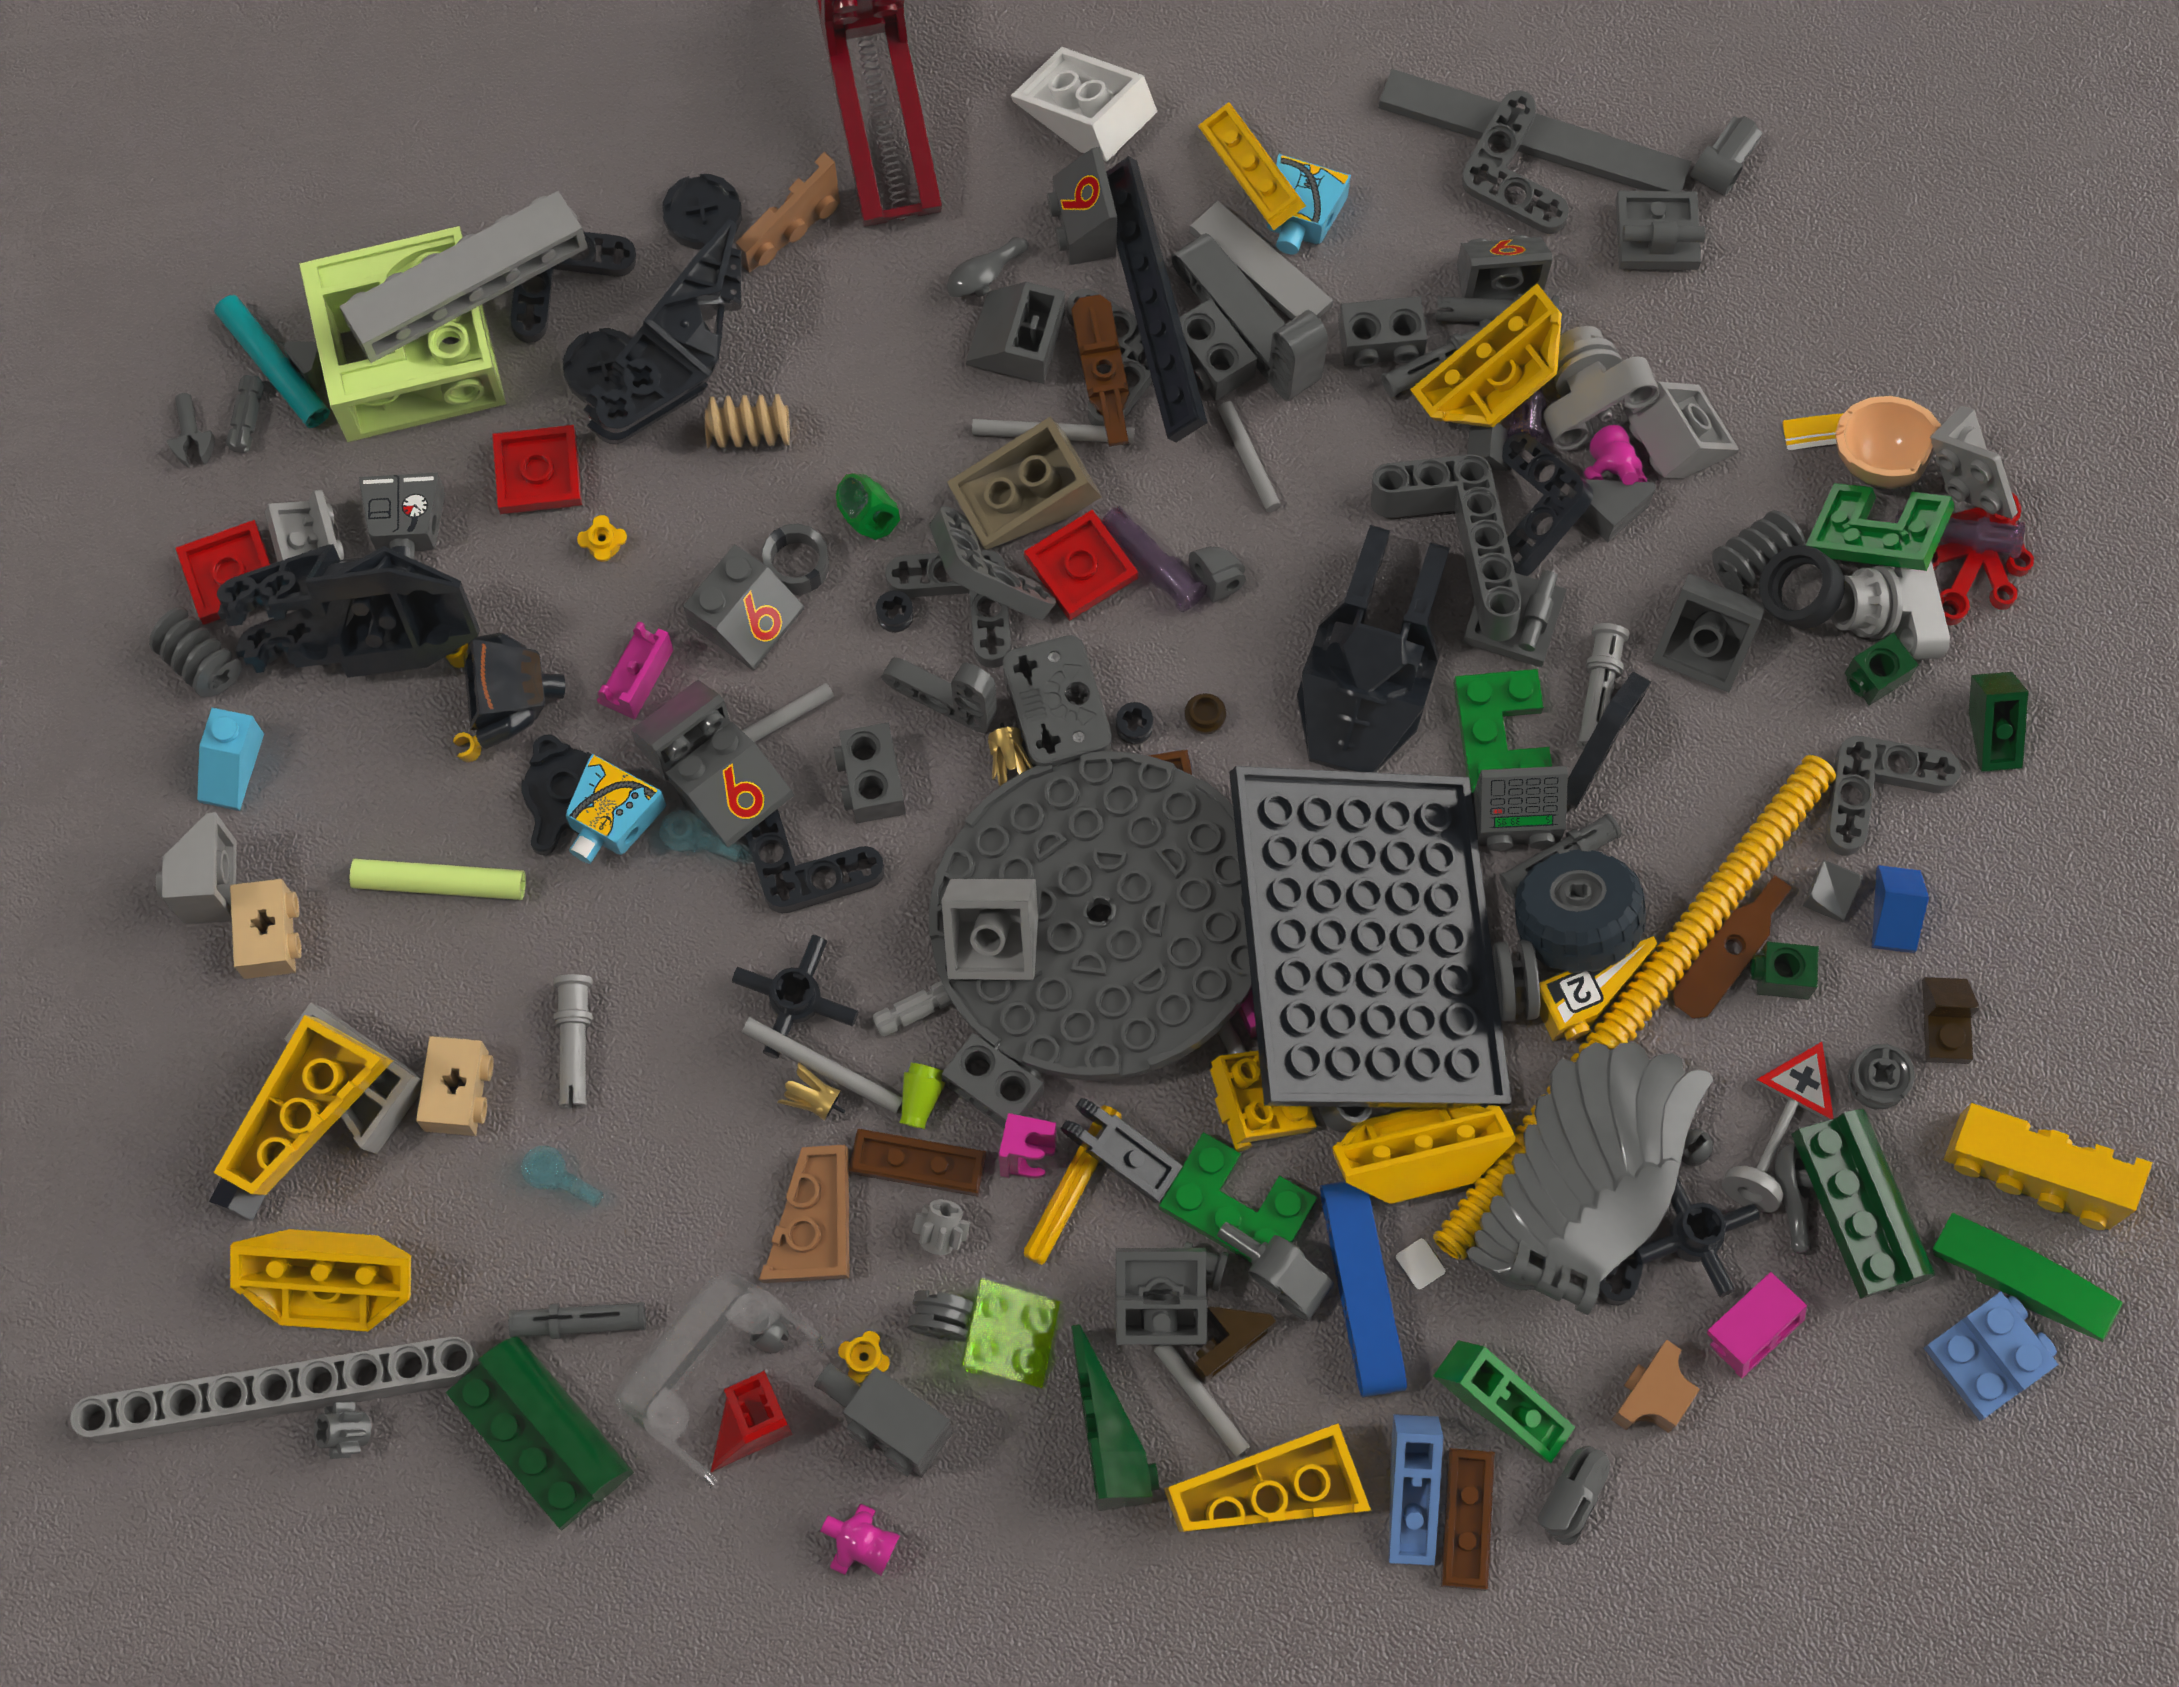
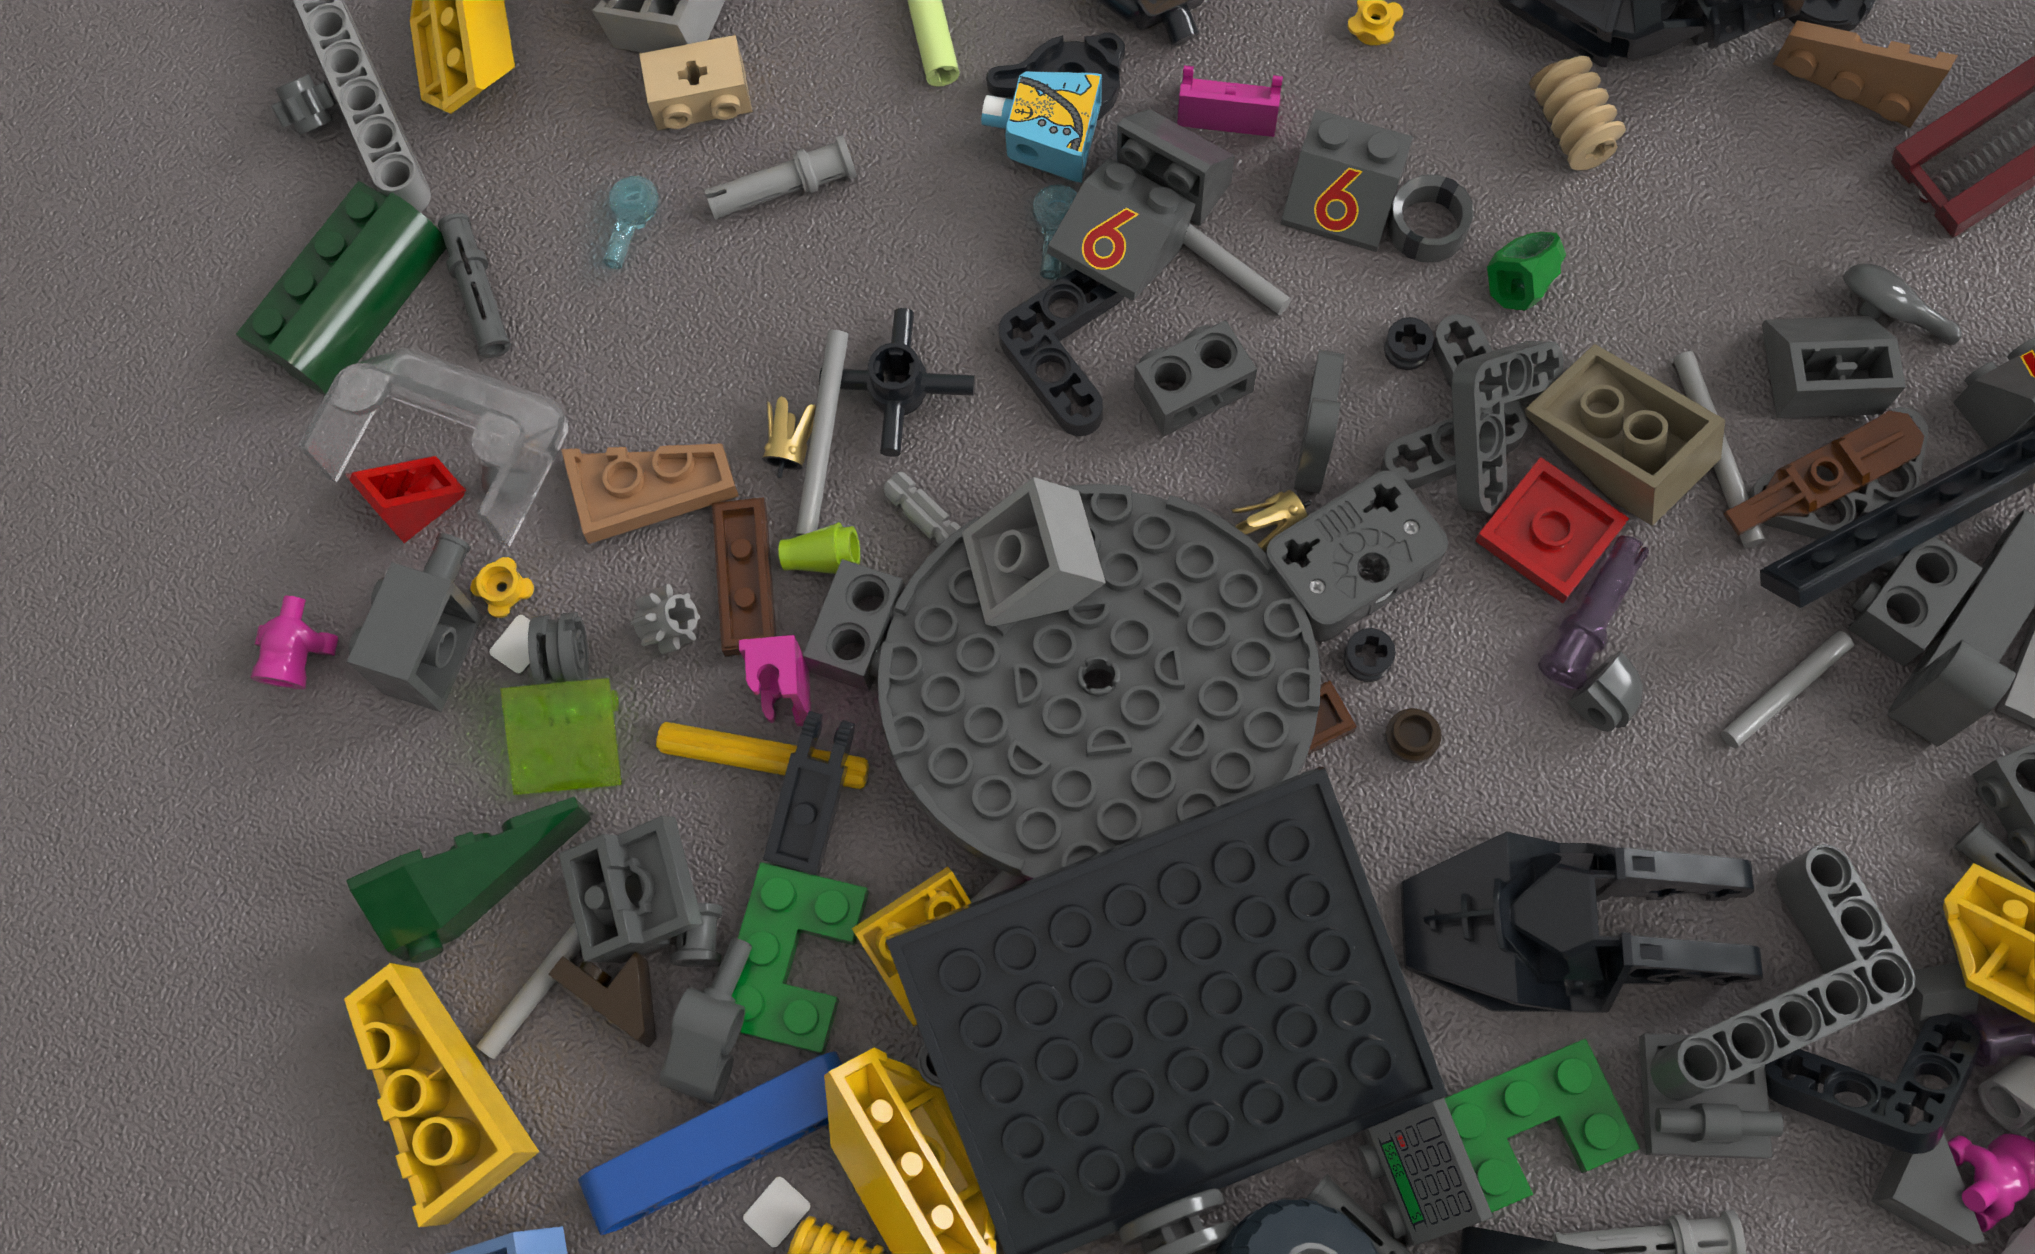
camera: 80 degrees right, 0 degrees up
(914, 1356) = (513, 645): none -> white sticker

